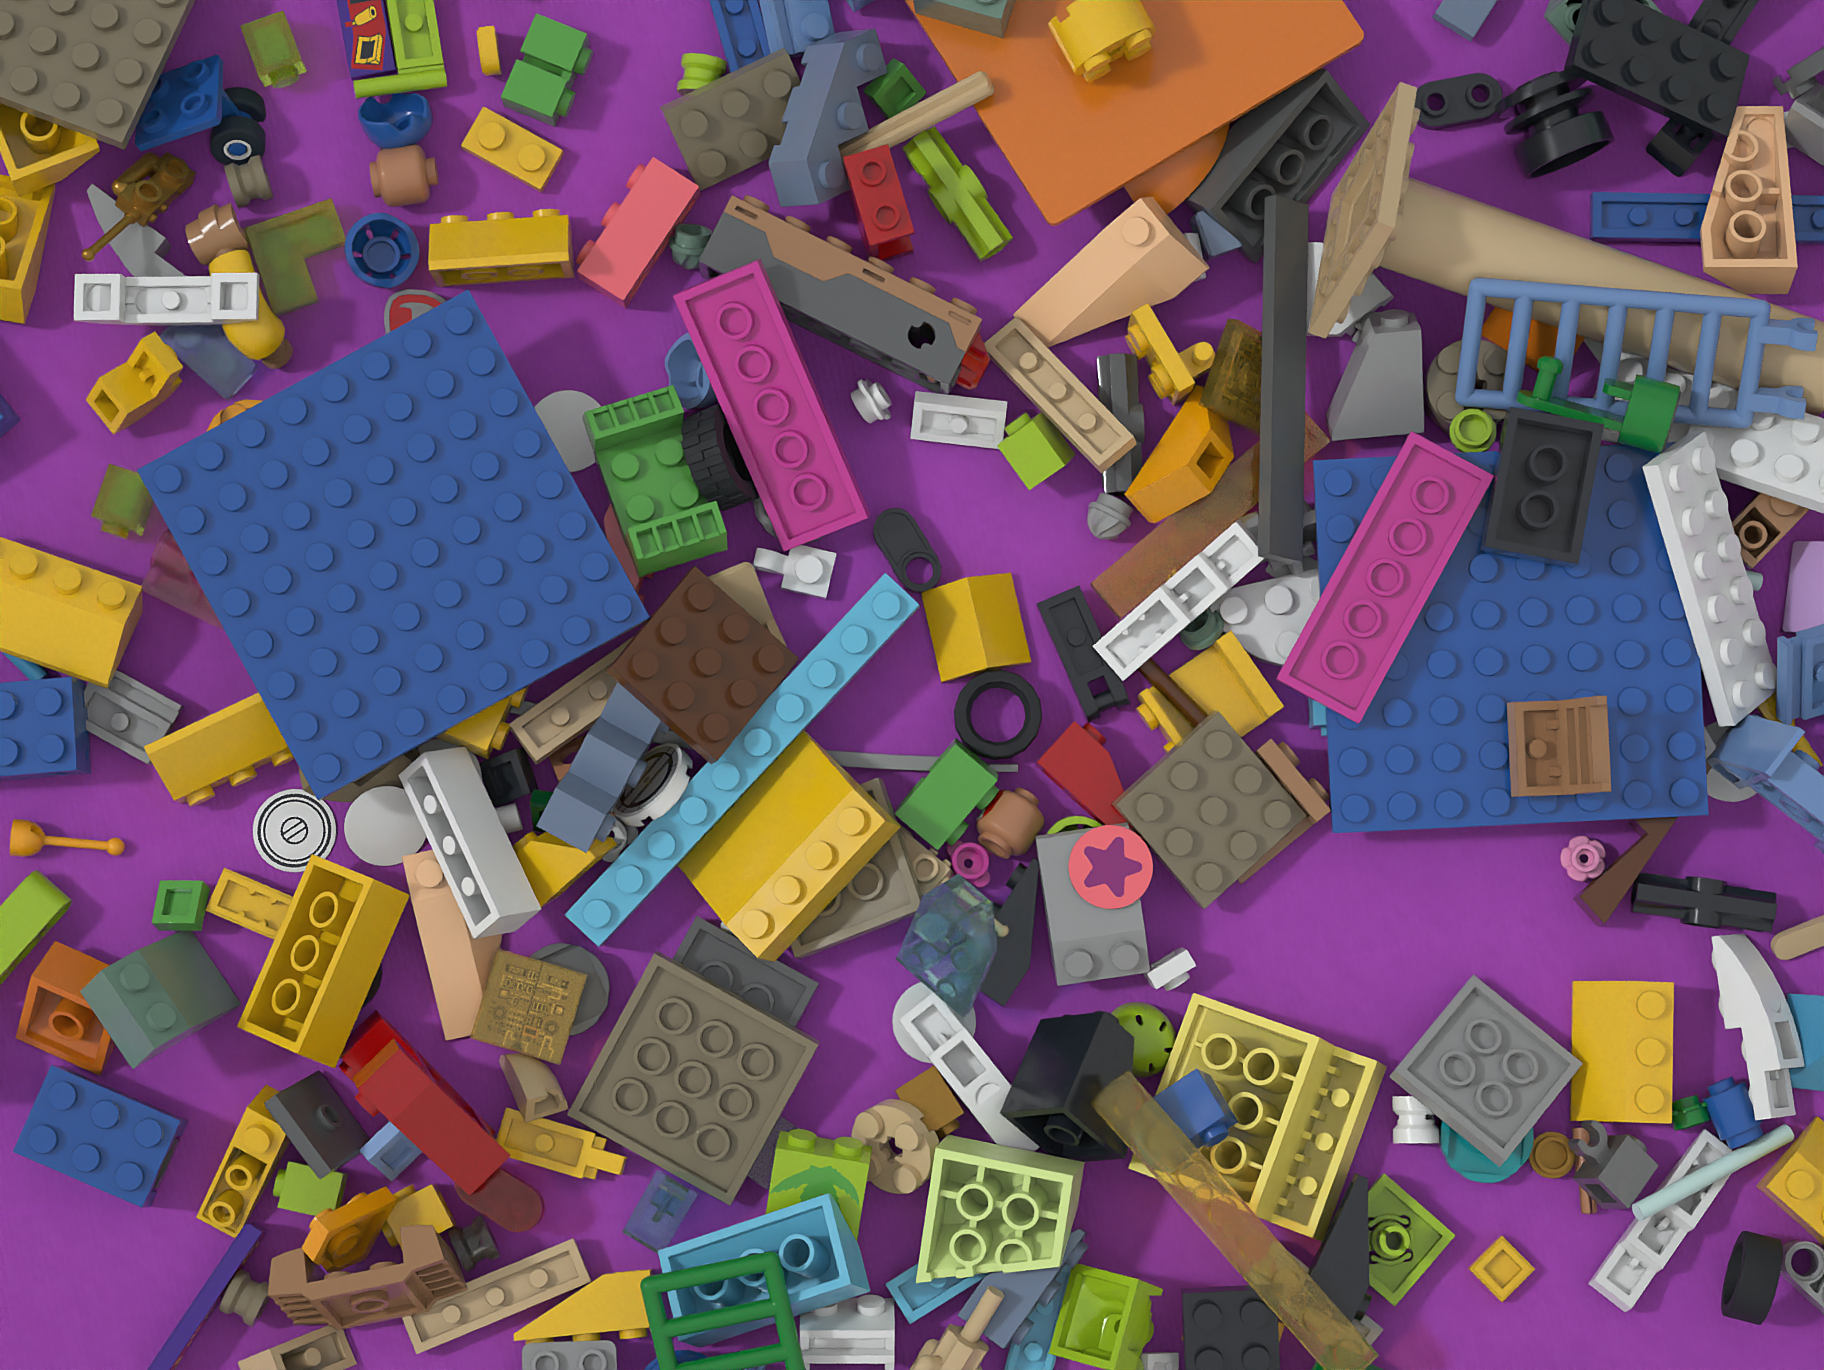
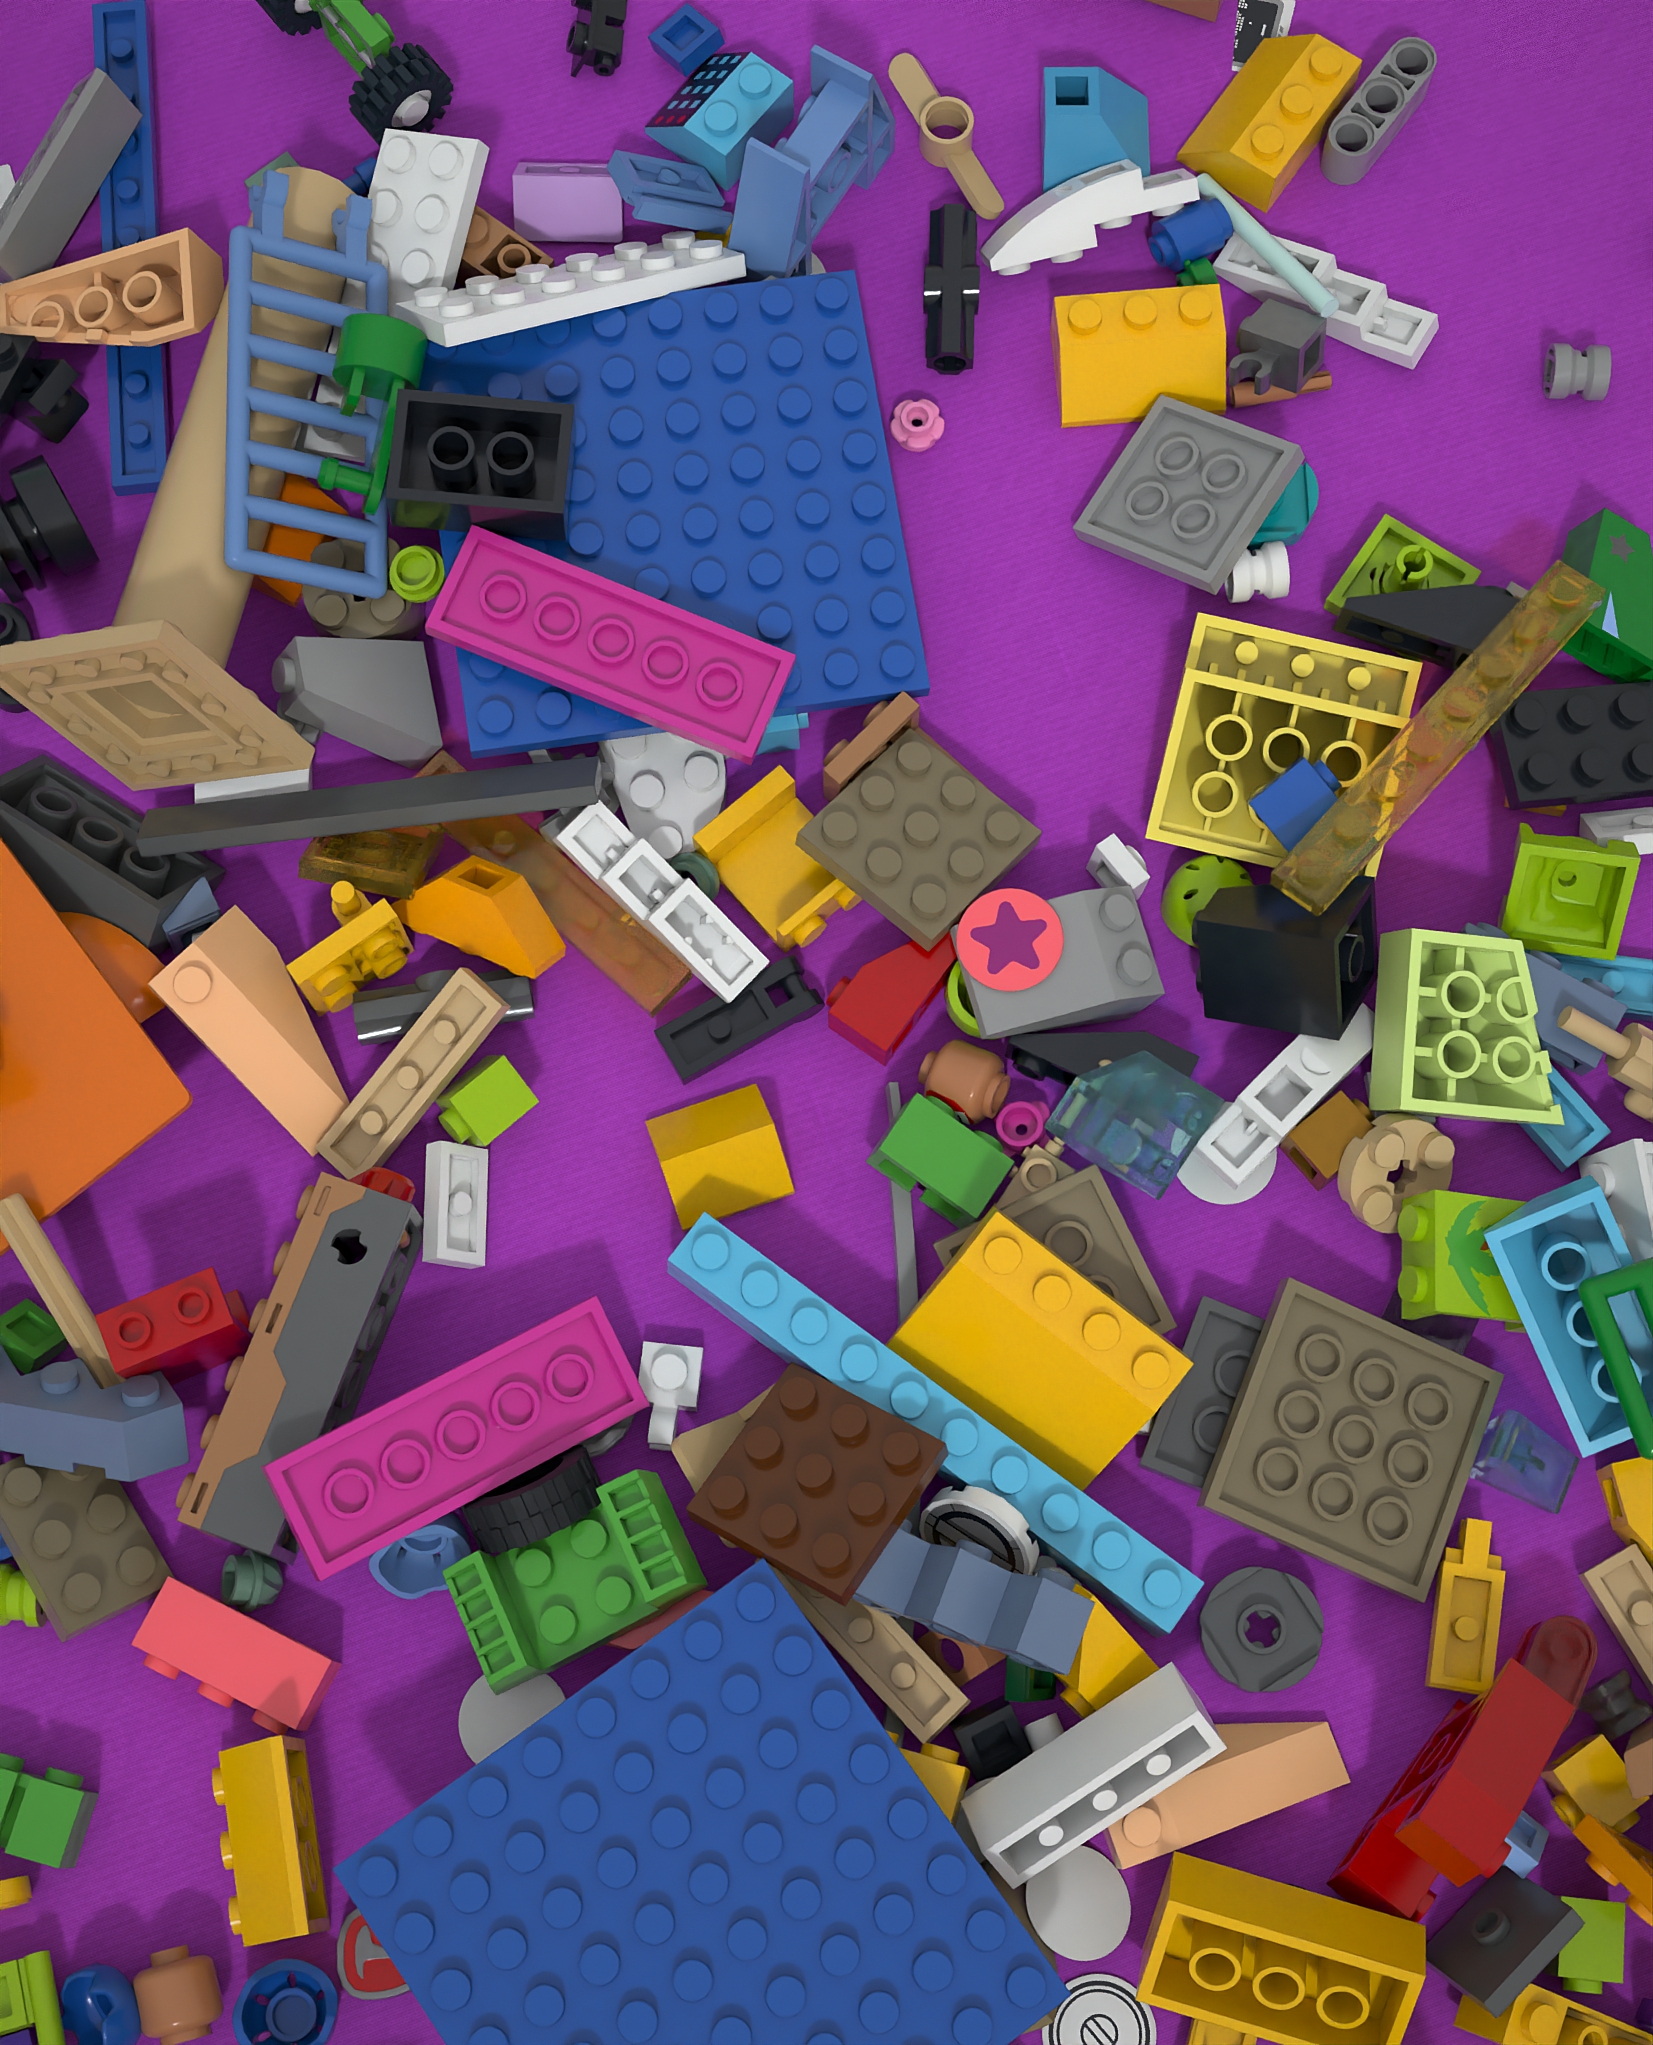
camera: 90 degrees left, 10 degrees down
(512, 149) = (133, 1847): yellow plate -> none
(529, 1006) = (1294, 1669): clear yellow tile -> none
(532, 1086) = (1395, 1653): tan brick -> none
(871, 401) = (440, 1318): white plate -> none
(902, 542) = (619, 1261): black piece -> none
(957, 193) = (159, 1240): lime piece -> none
(1007, 681) = (819, 1070): black tyre -> none
(1108, 517) = (562, 1007): light grey plate -> none
(1172, 692) = (781, 899): reddish brown bar -> none
(1501, 1268) = (1411, 467): yellow tile -> none
(1551, 1155) = (1272, 417): pearl gold plate -> none
(1559, 747) = (798, 411): medium nougat plate -> none
(1608, 889) = (955, 389): reddish brown slope -> none
(1751, 1277) = (1383, 167): black tyre -> none

